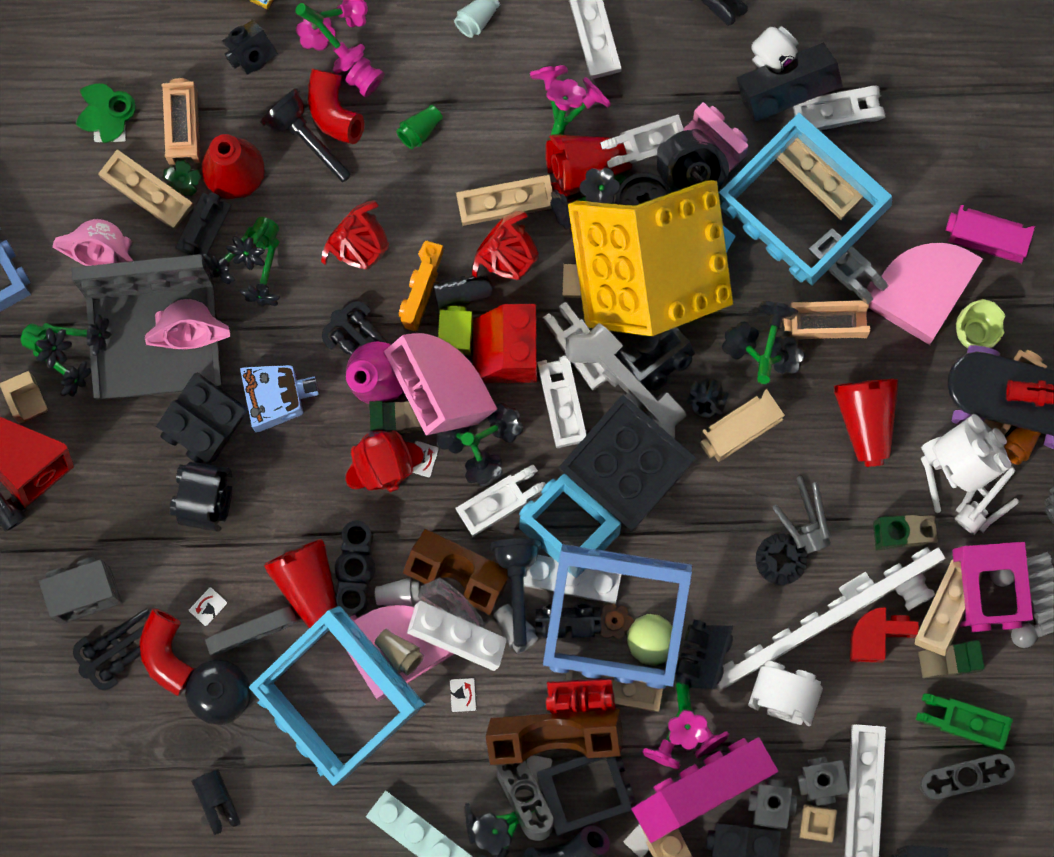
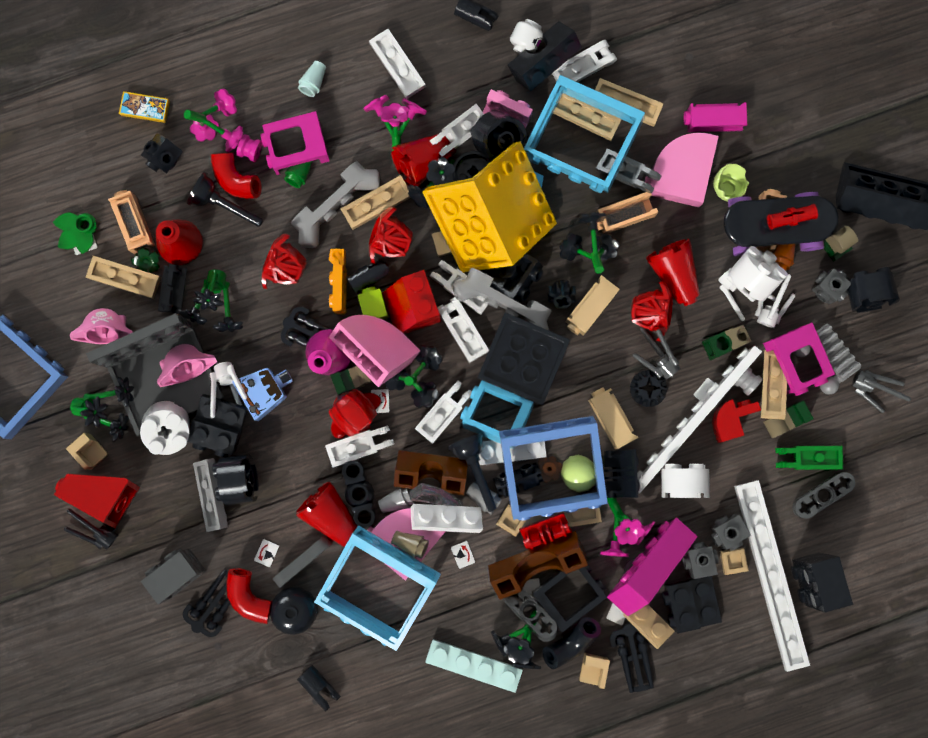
camera: 25 degrees left, 5 degrees up
(150, 391) = (163, 440): none -> white brick
(158, 522) = (213, 511): none -> light grey plate
(233, 357) = (225, 374): none -> white plant
(373, 507) = (356, 446): none -> white hinge
(451, 88) = (312, 136): none -> dark pink window
(488, 161) = (309, 222): none -> light grey plate
(538, 674) = (507, 523): none -> tan tile
(719, 580) = (612, 418): none -> tan window
(816, 454) = (653, 309): none -> red piece
(903, 191) = (649, 106): none -> tan plate

